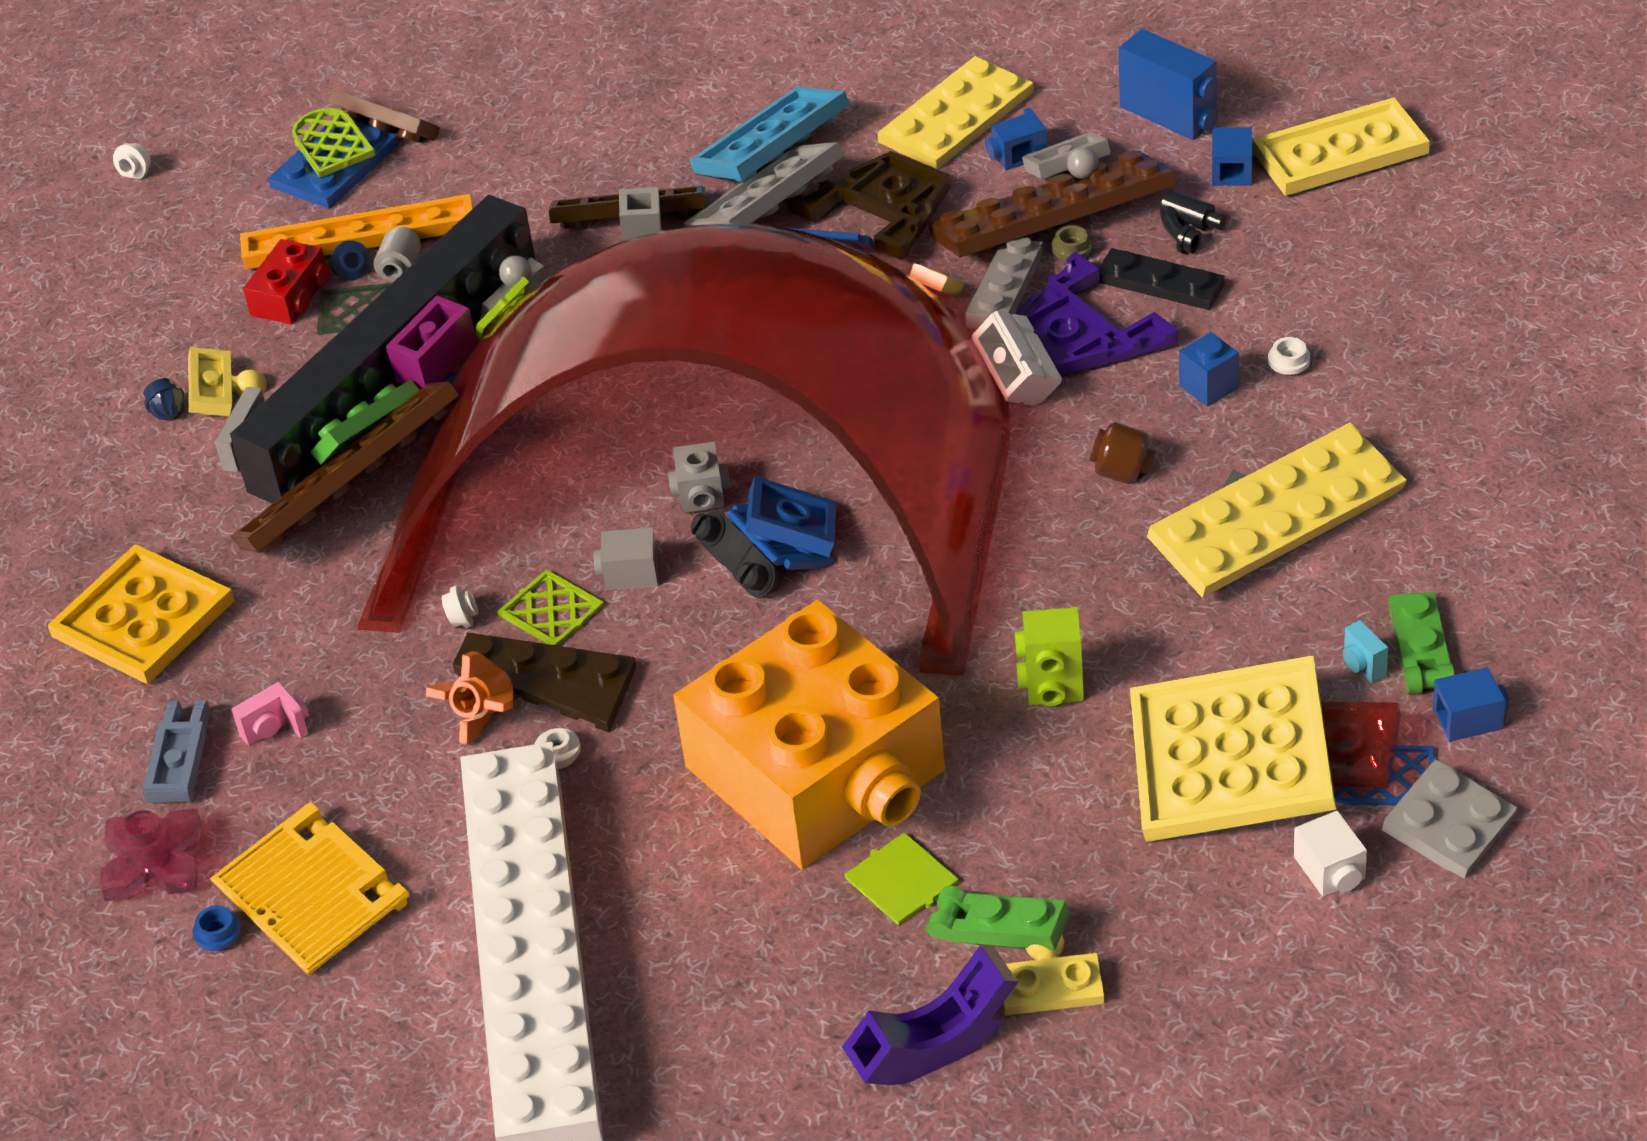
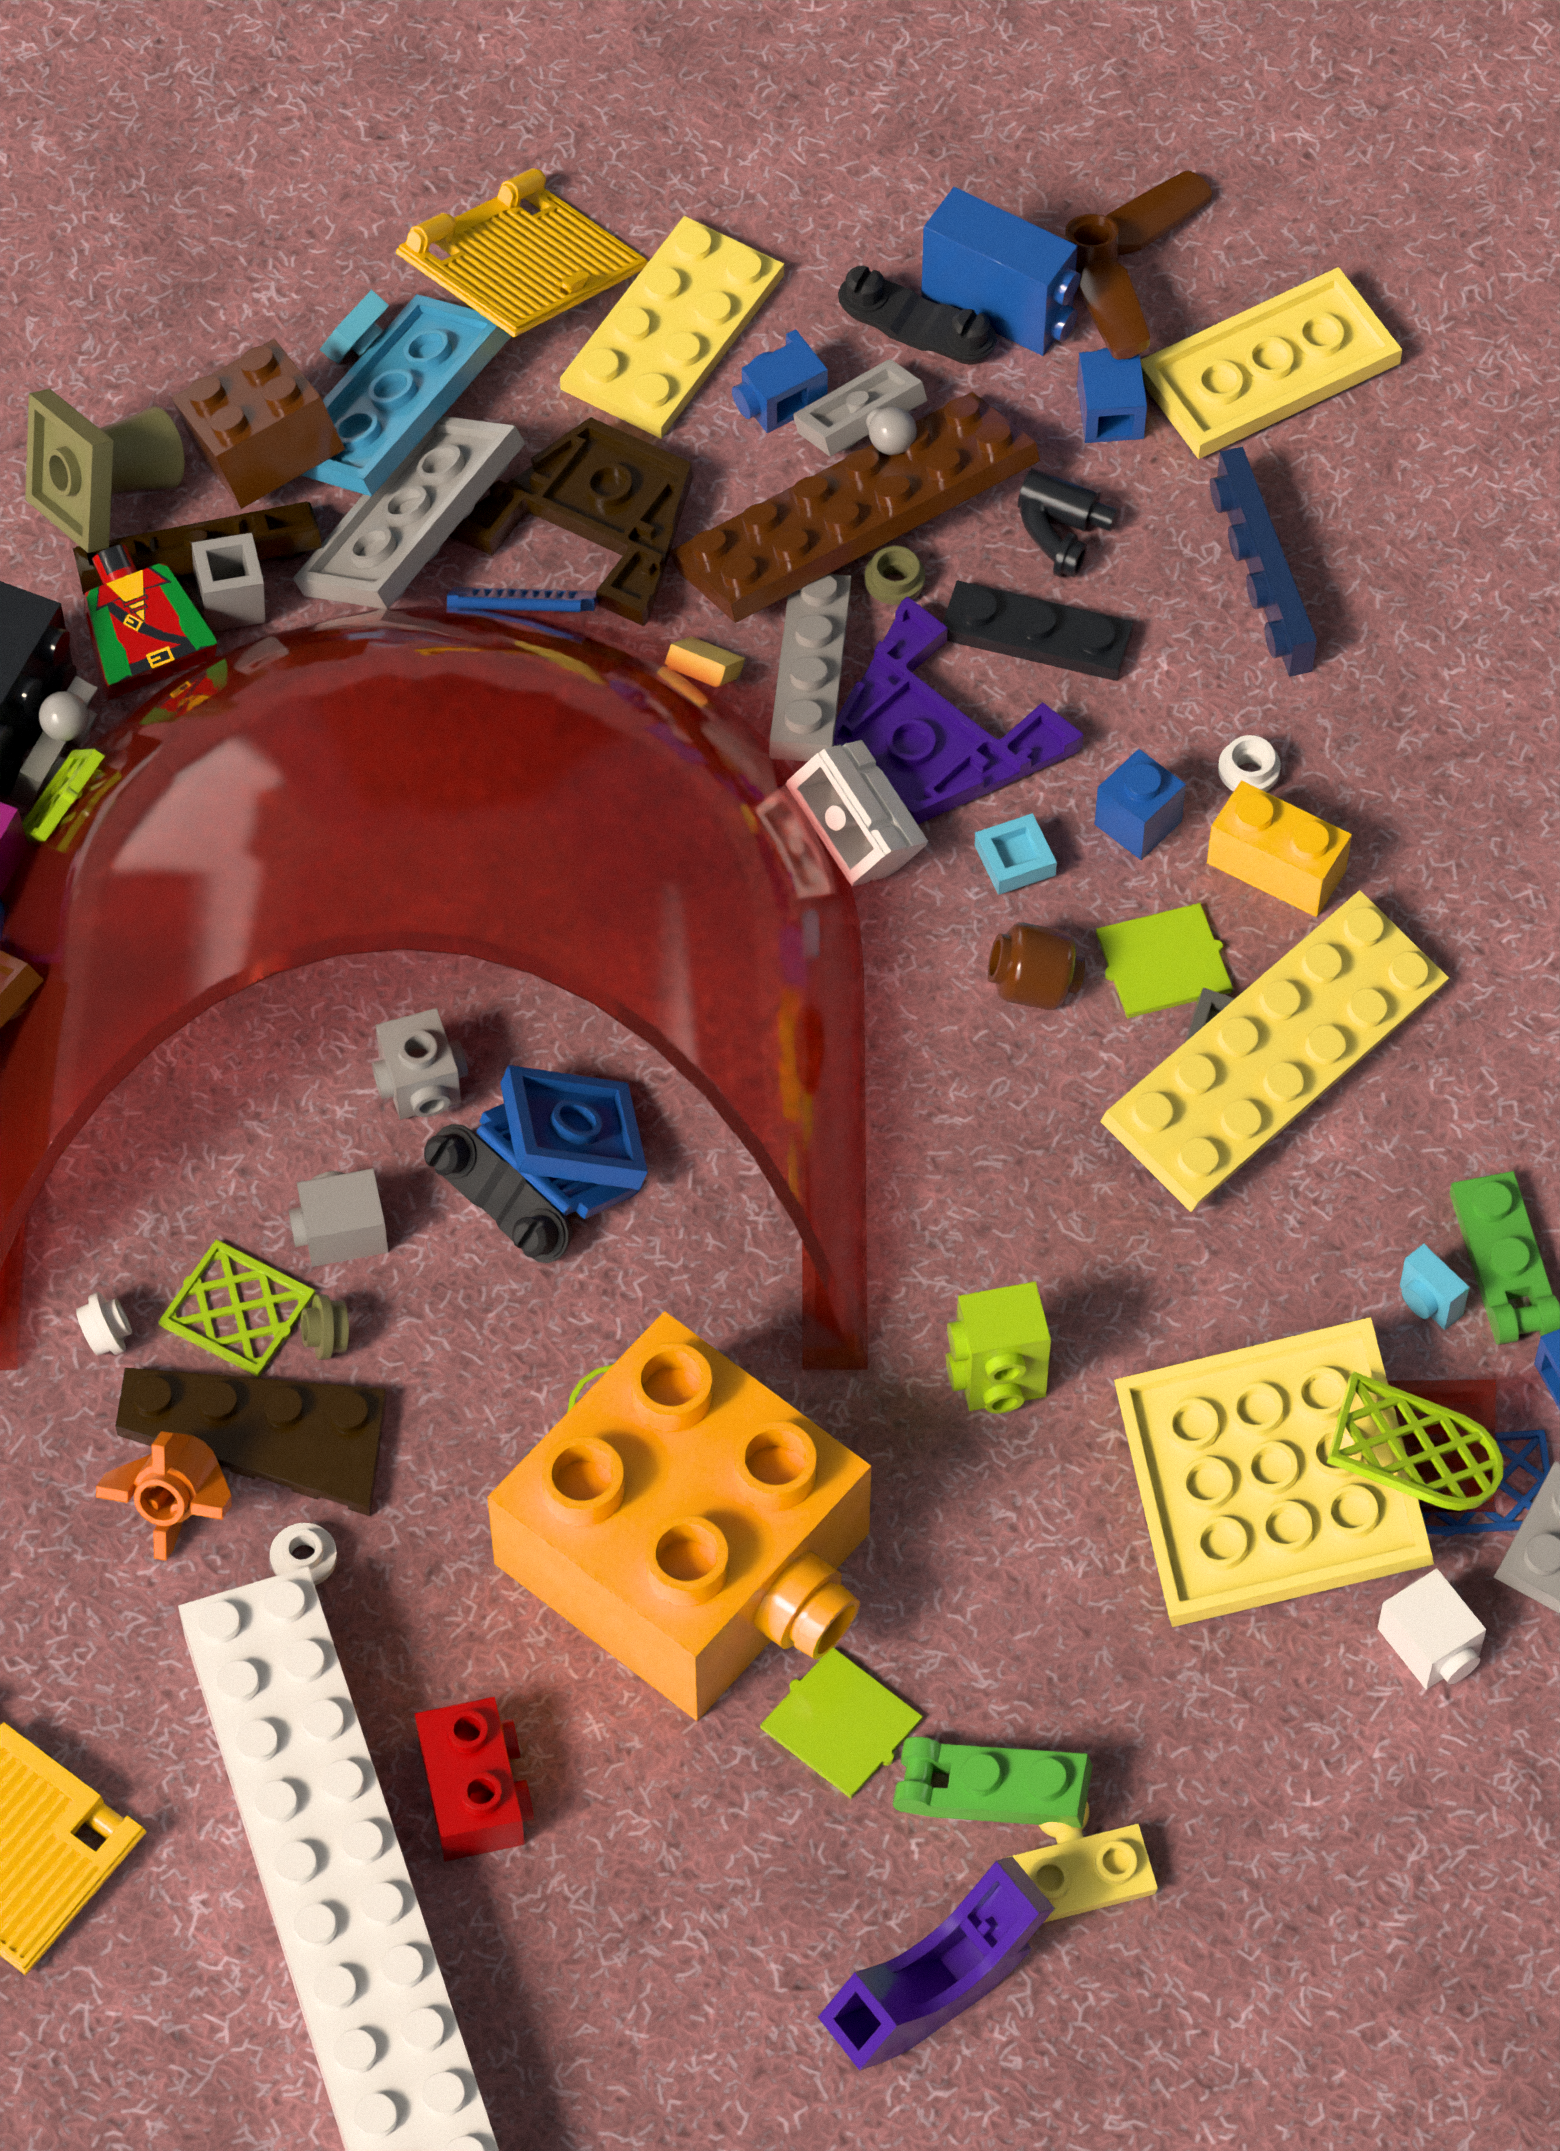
camera: 15 degrees left, 15 degrees up
(564, 151) = (79, 466): none -> olive plant
(577, 229) = (142, 624): none -> torso
(603, 619) = (325, 1327): none -> olive plate
(636, 883) = (471, 1778): none -> red brick
(678, 137) = (258, 423): none -> reddish brown brick
(753, 99) = (357, 330): none -> medium azure plate
(861, 70) = (520, 264): none -> yellow window
(1121, 393) = (1015, 854): none -> medium azure plate
(1134, 122) = (915, 320): none -> black piece
(1209, 459) = (1163, 960): none -> lime piece
(1238, 77) = (1126, 230): none -> reddish brown piece
(1299, 397) = (1279, 848): none -> yellow brick
(1319, 256) = (1270, 578): none -> dark blue plate
(1326, 754) = (1437, 1413): none -> lime window

